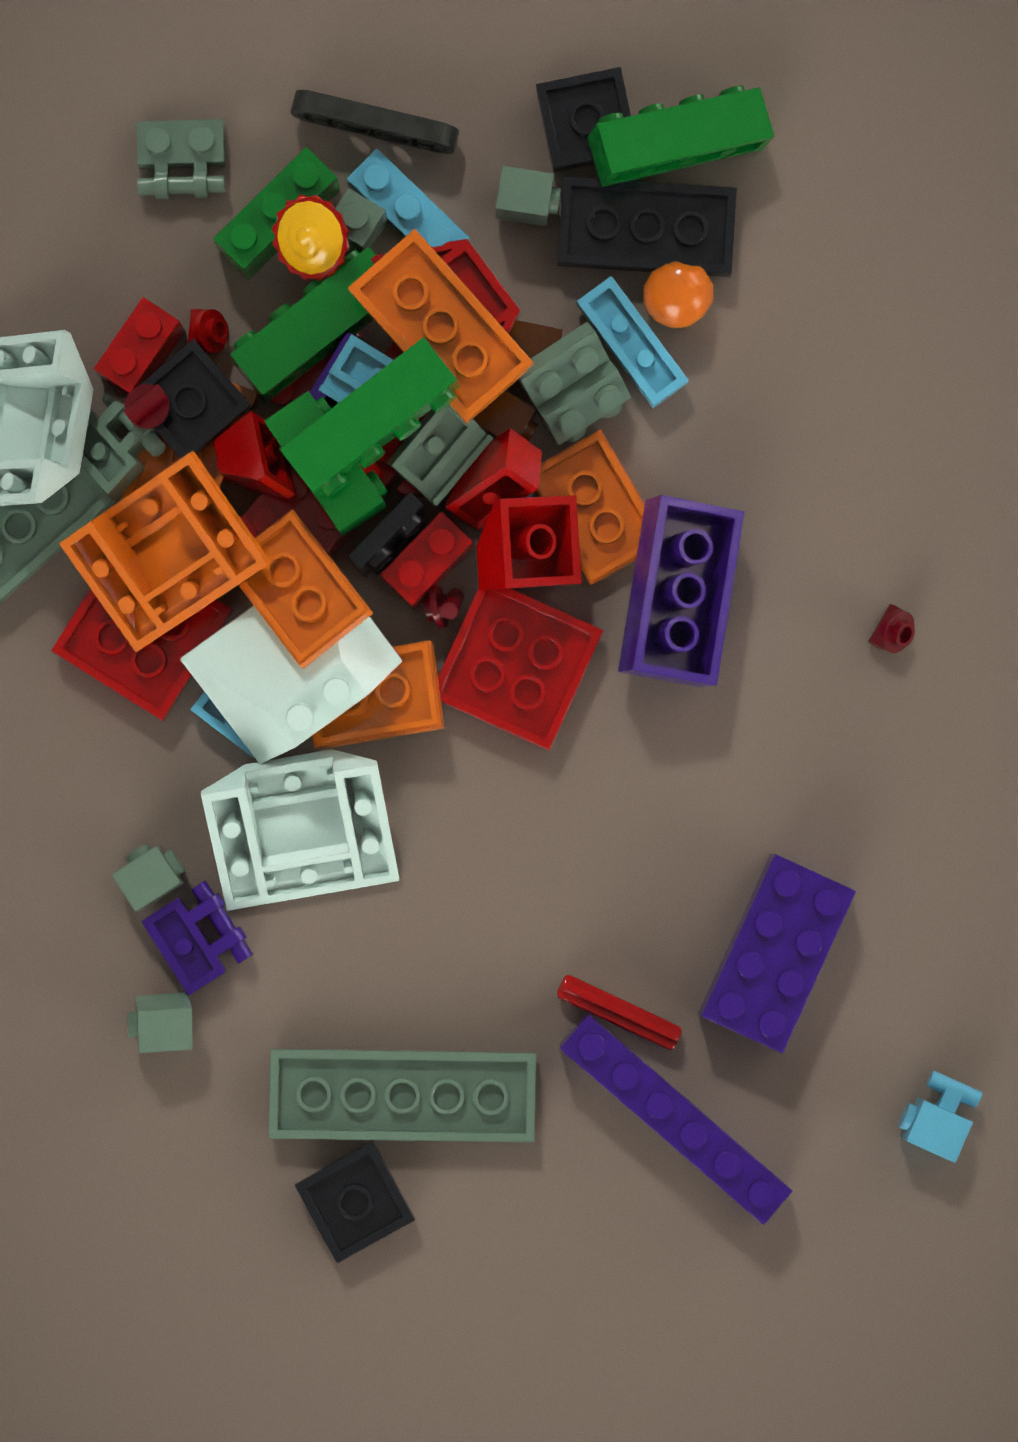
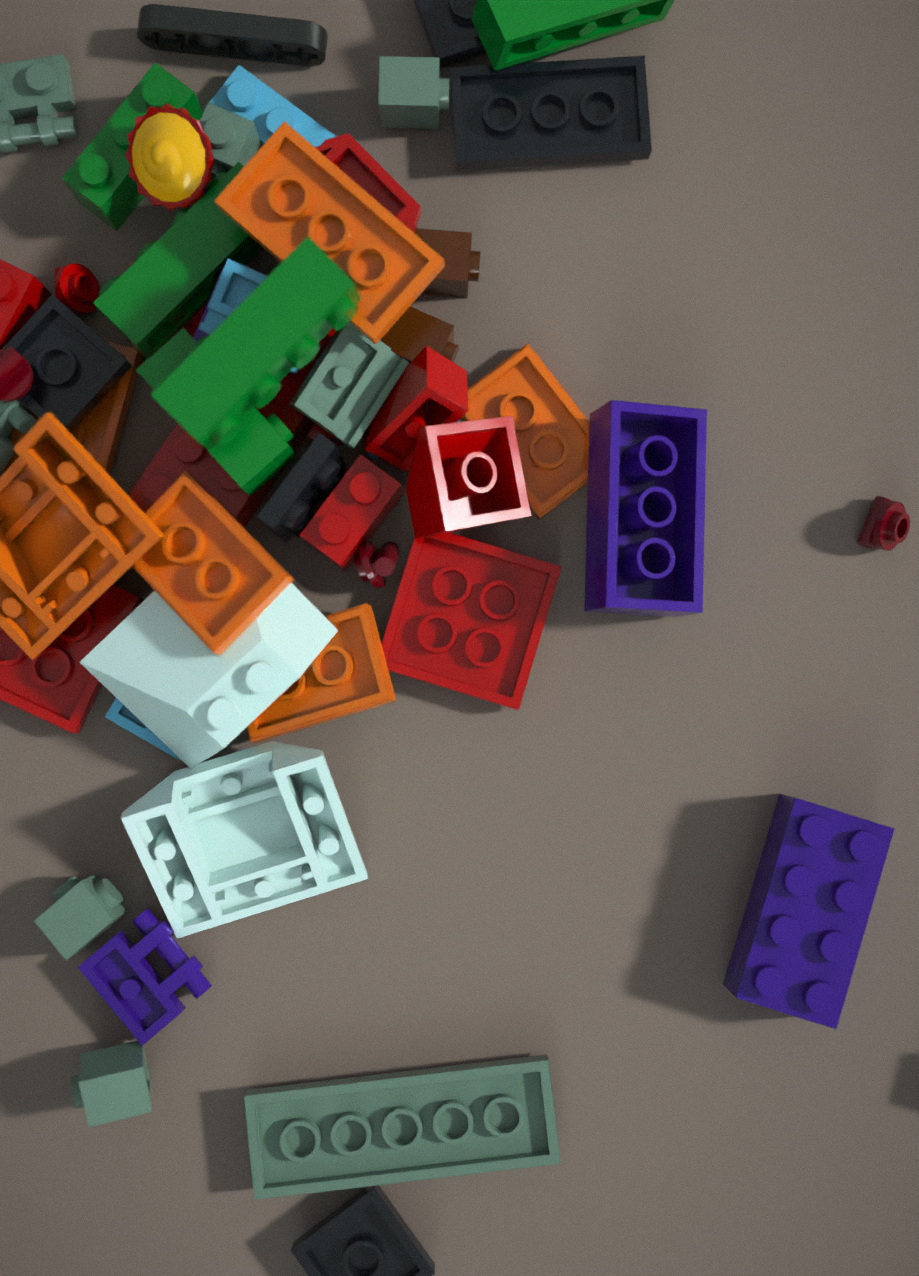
camera: 10 degrees left, 0 degrees up
(254, 458) = (134, 422): red slope -> none
(574, 385) = (492, 292): sand green plate -> none
(619, 1012) = (636, 997): red axle -> none
(632, 342) = (550, 242): medium azure plate -> none
(675, 1118) = (720, 1116): dark purple brick -> none
(677, 294) = (594, 181): orange hair -> none

